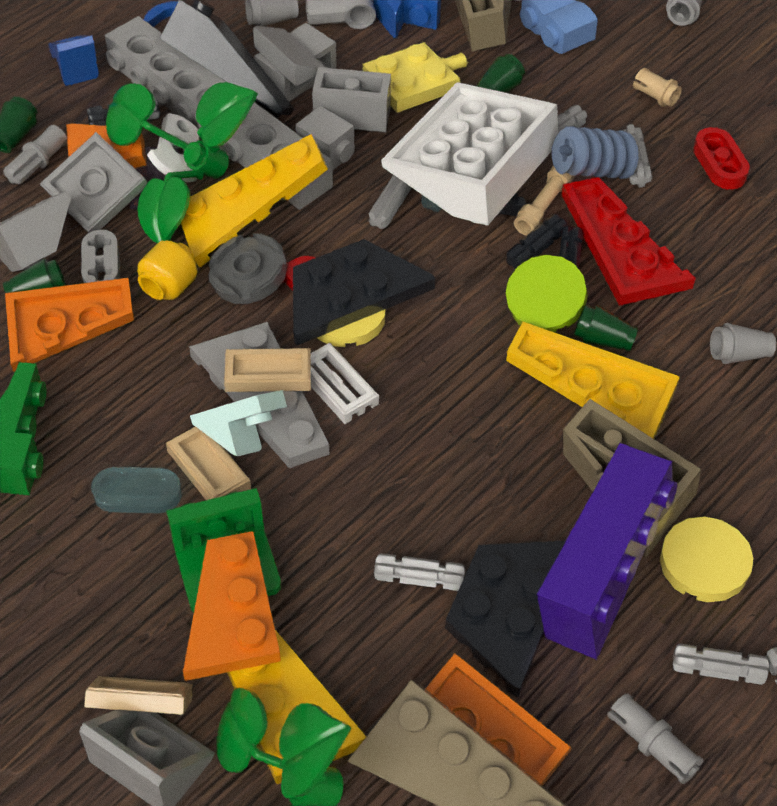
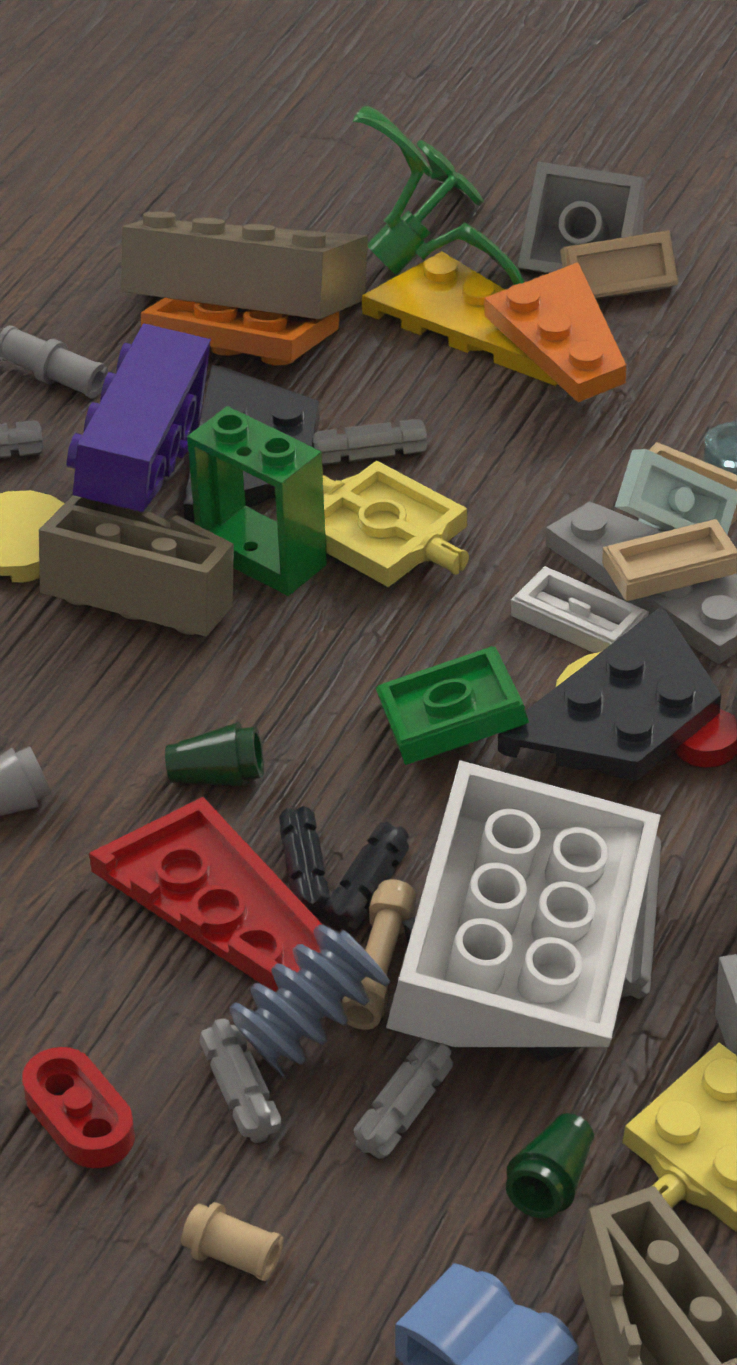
camera: 165 degrees right, 10 degrees down
(216, 518) = (616, 398): green bracket -> none
(440, 482) = (391, 524): none -> light yellow plate
(453, 314) = (451, 705): none -> green tile
(534, 475) = (286, 549): none -> green window
(546, 292) = (321, 776): lime tile -> none
(587, 372) = (190, 689): yellow wing -> none

